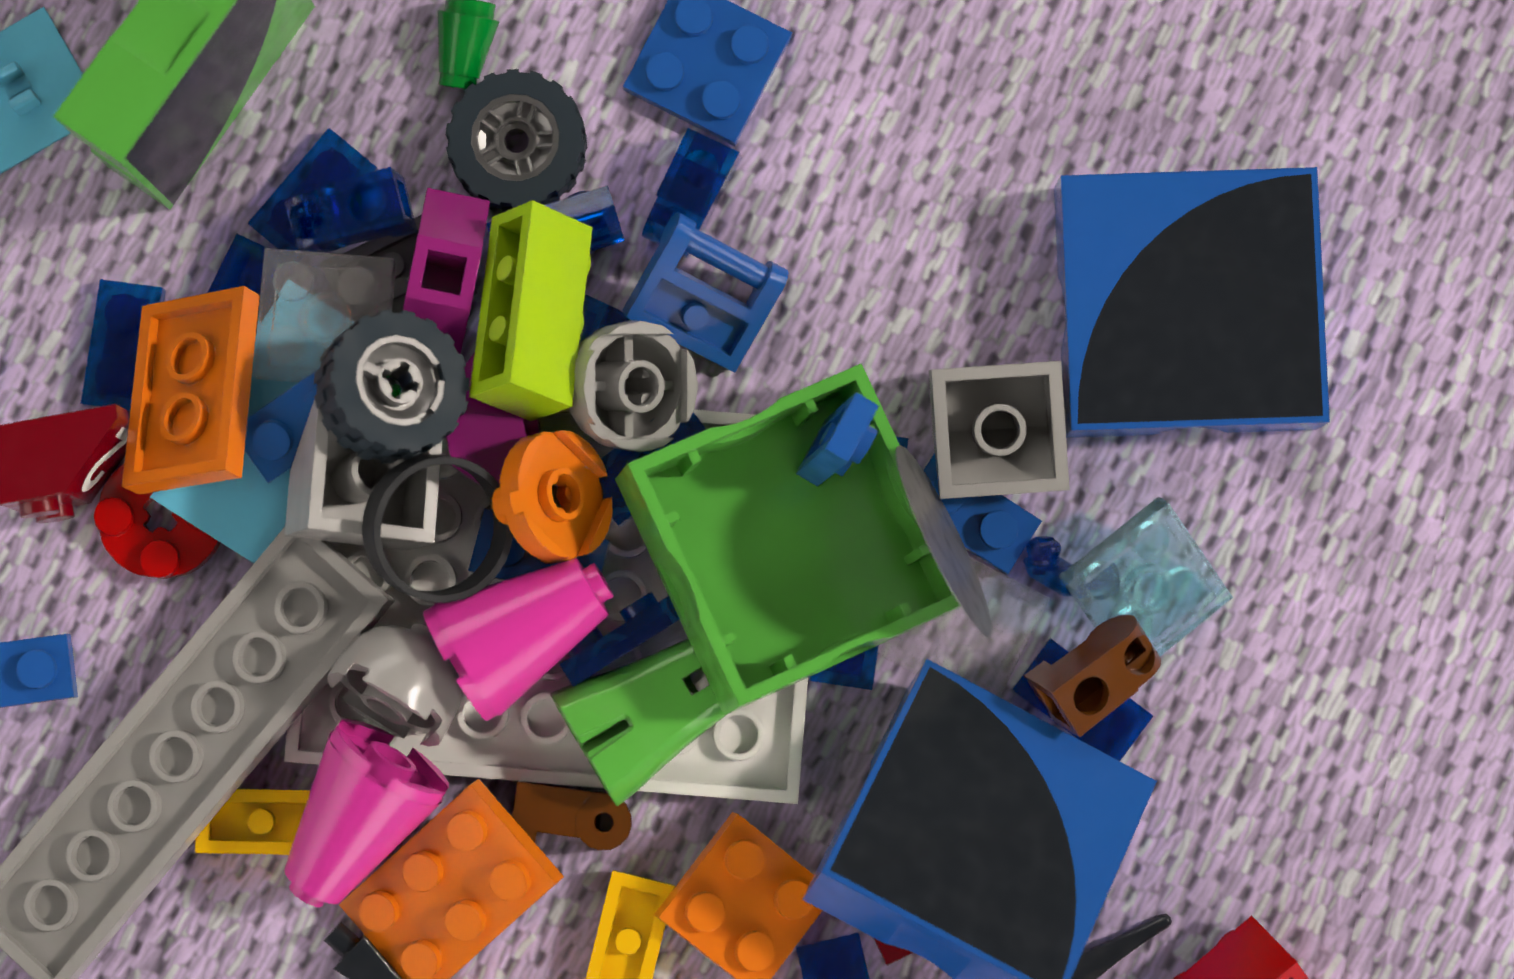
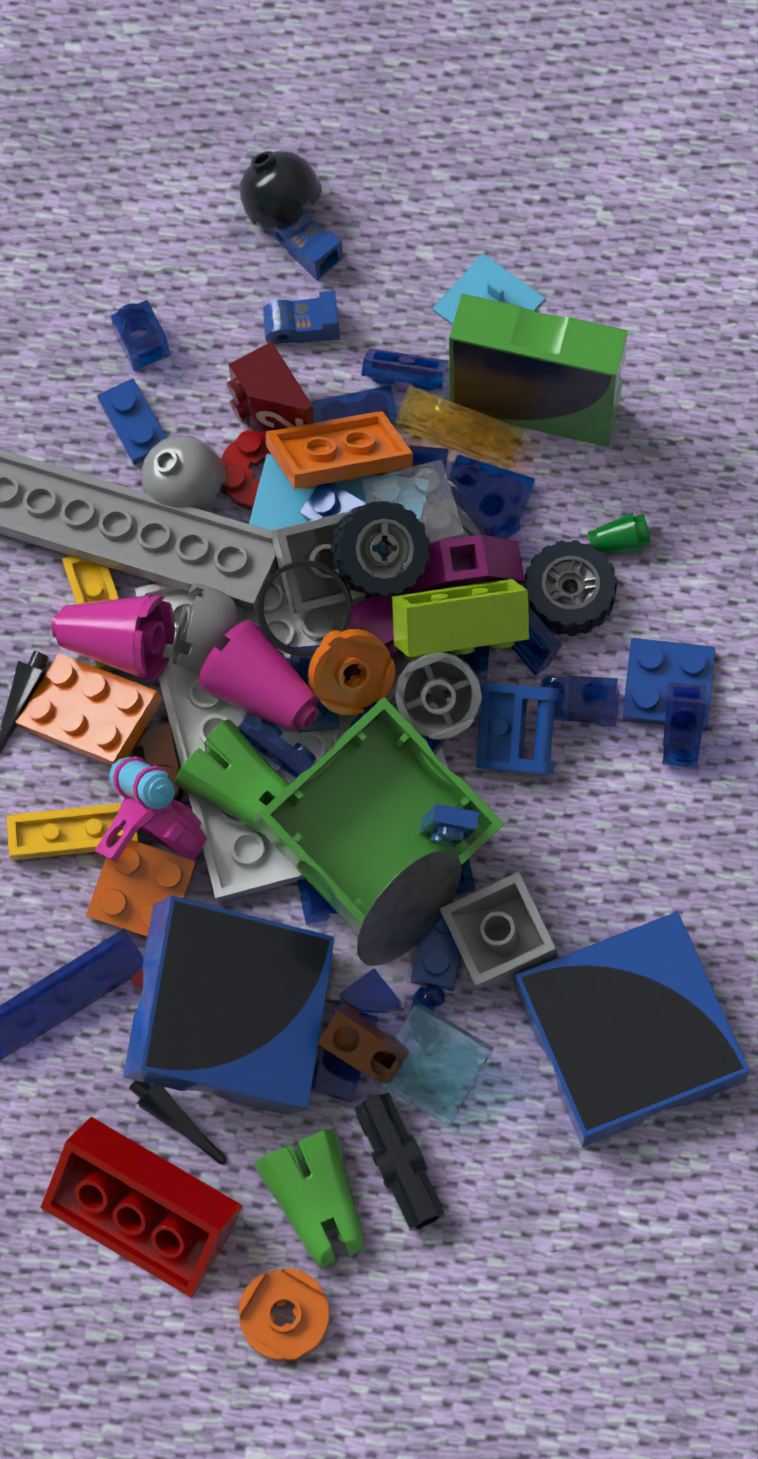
camera: 75 degrees right, 15 degrees down
(82, 248) = (390, 366): none -> clear blue plate
(132, 630) = (183, 473): none -> light grey cylinder
(207, 206) = (458, 428): none -> clear yellow plate
(649, 856) = (150, 807): none -> dark pink piece
(785, 61) = (683, 724): none -> clear blue leg
(1022, 638) = (371, 994): none -> clear blue tile
(1259, 681) = (399, 1161): none -> black piece
(1264, 811) = (315, 1194): none -> bright green piece
(1448, 912) = (277, 1289): none -> orange plate

